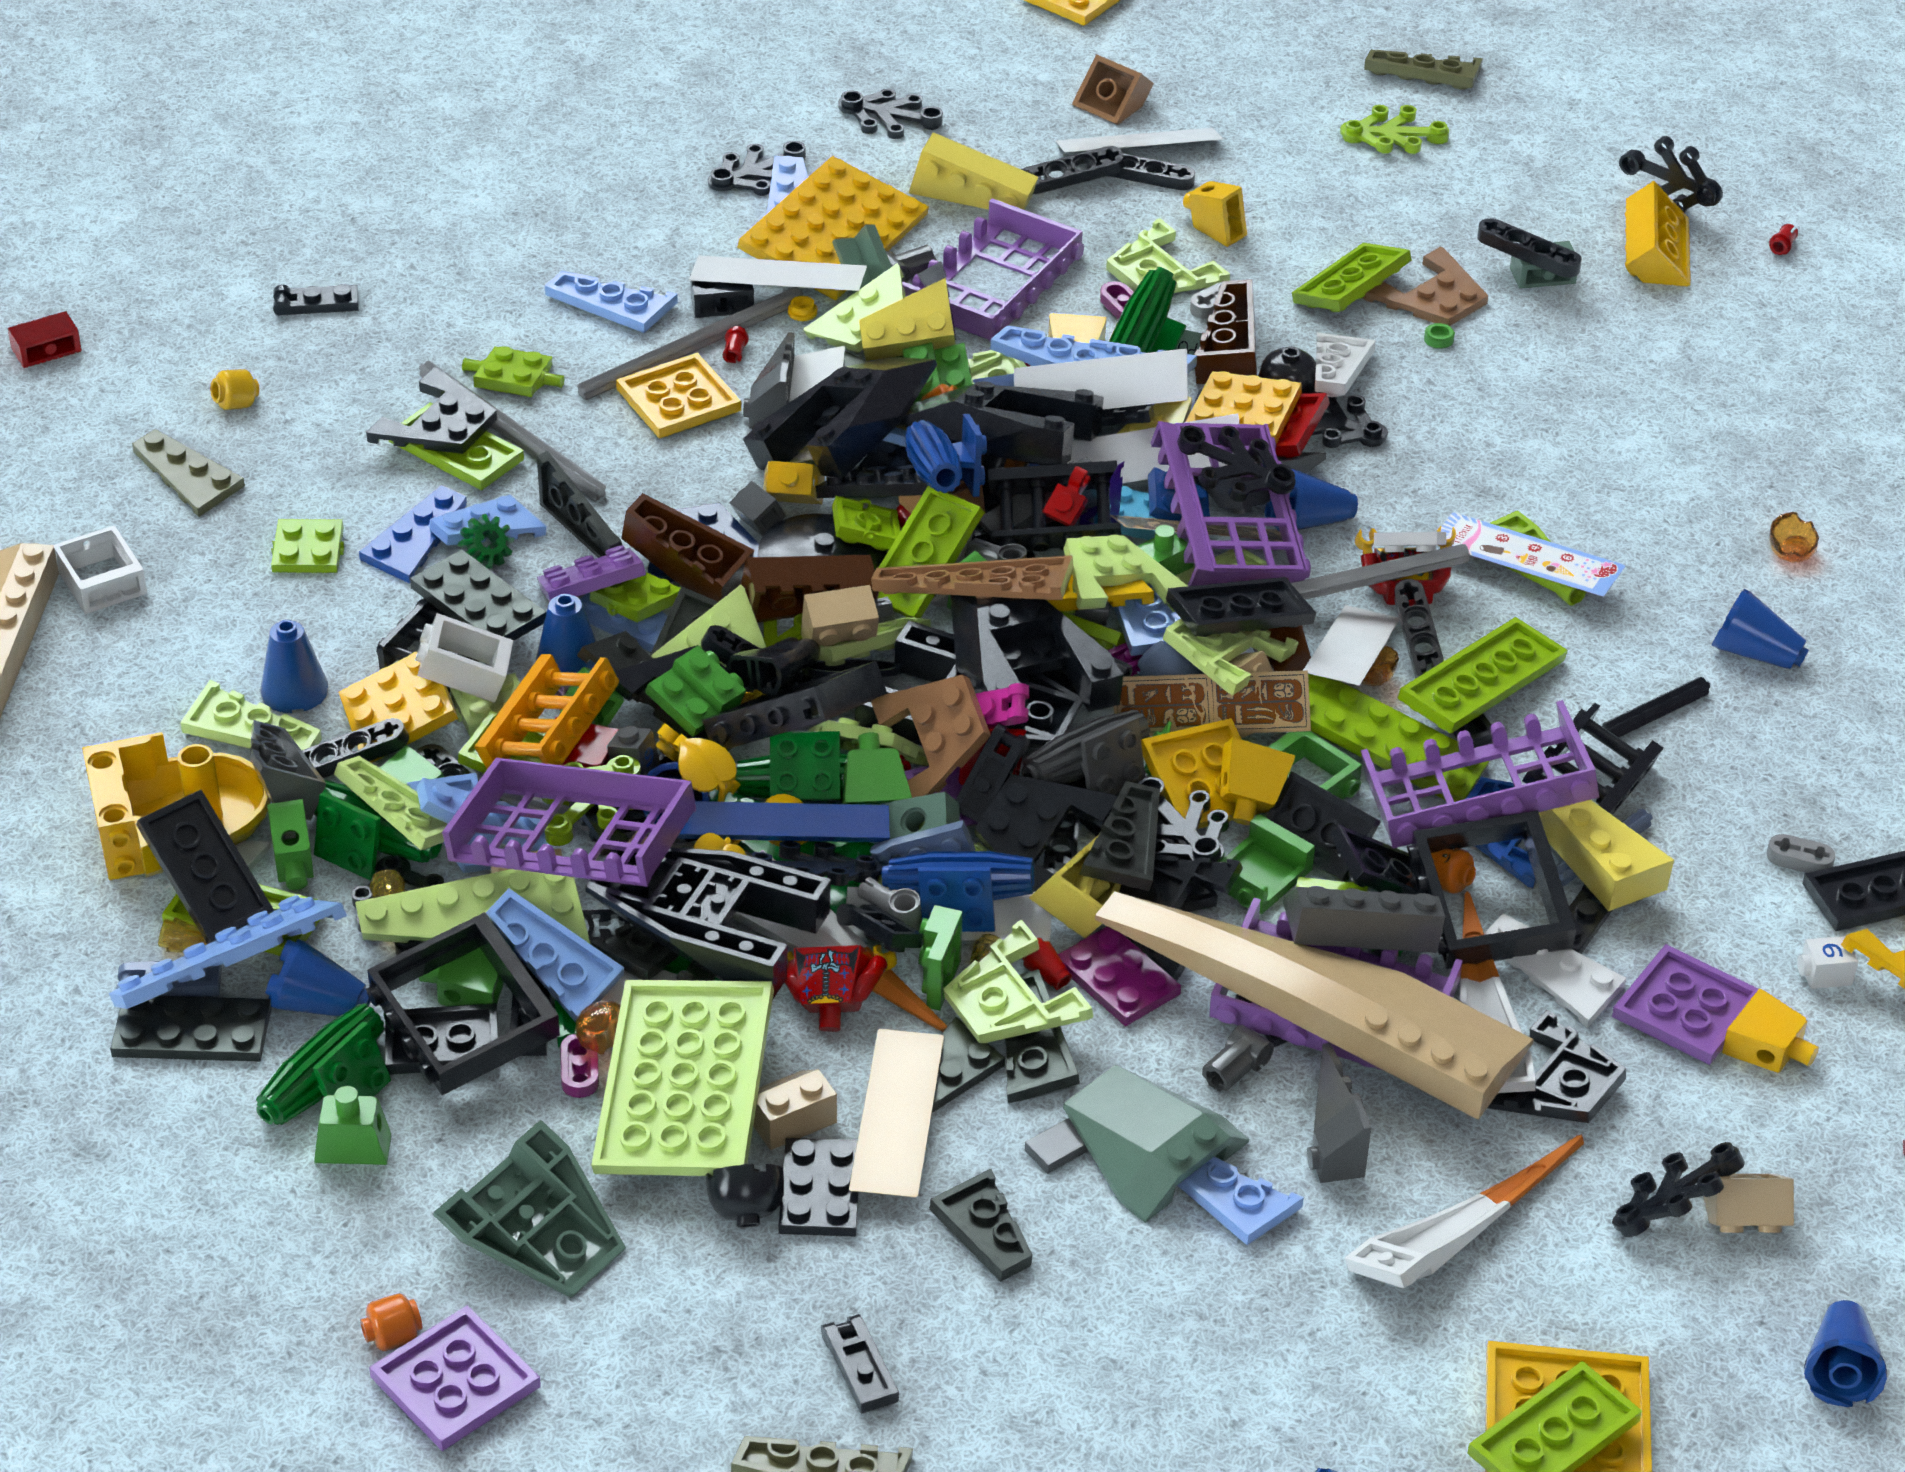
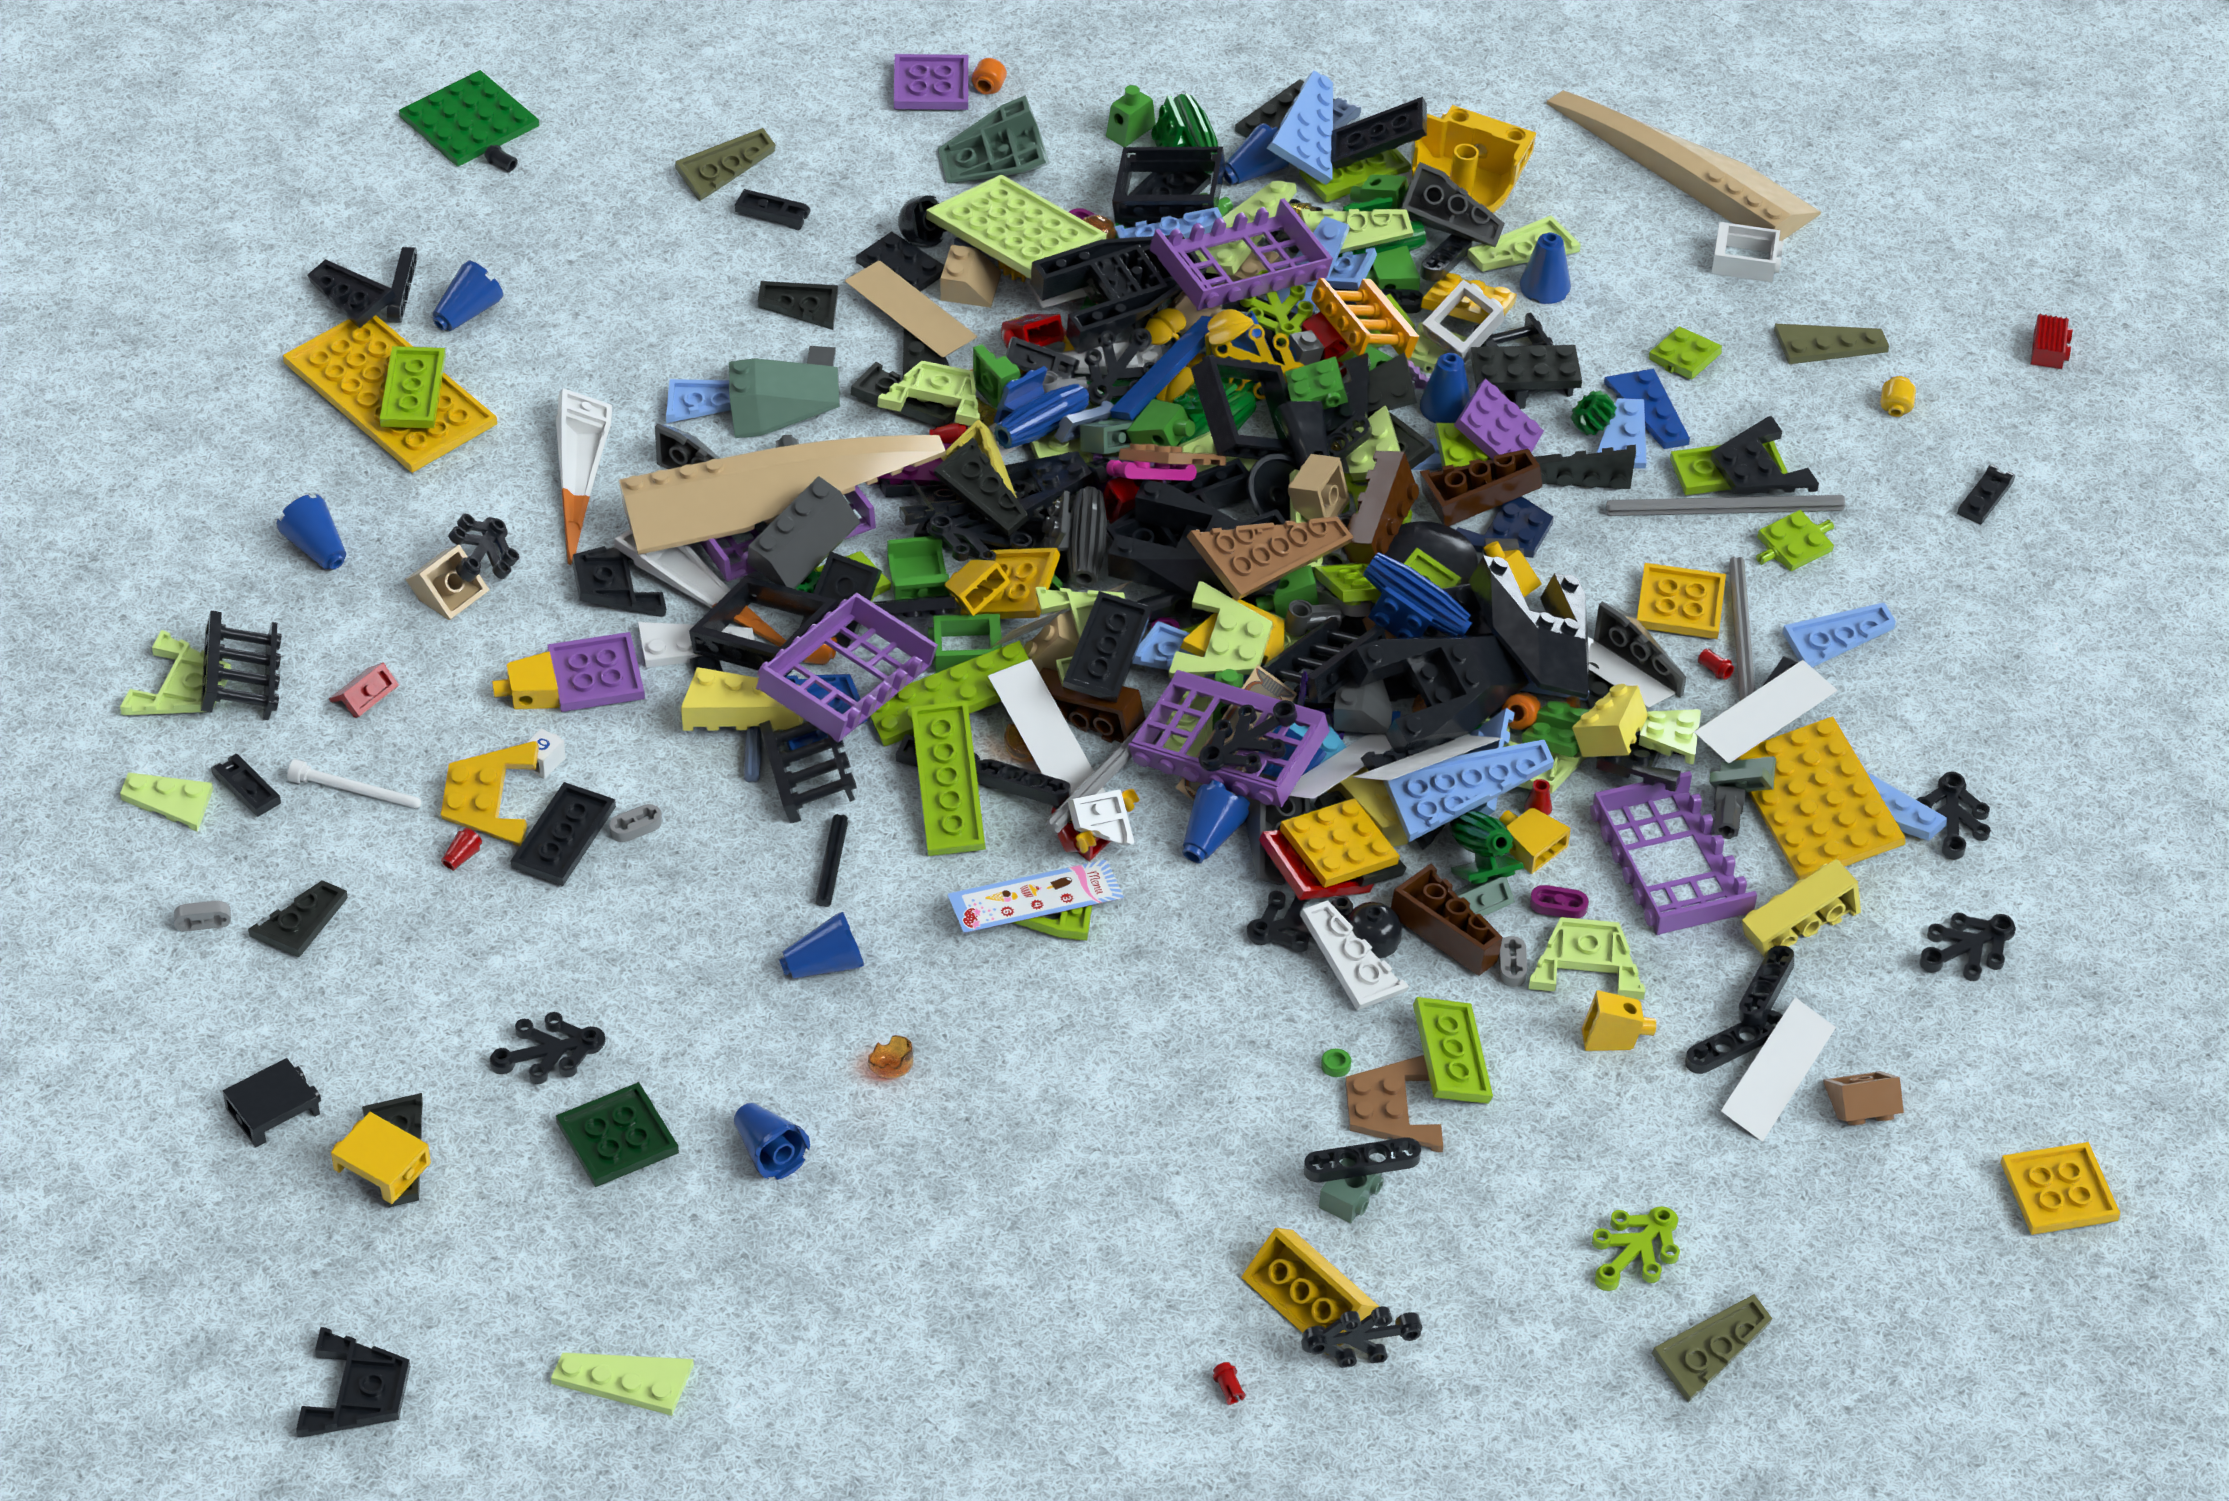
camera: 130 degrees right, 5 degrees up
(1067, 502) = (1311, 649): red plate -> none

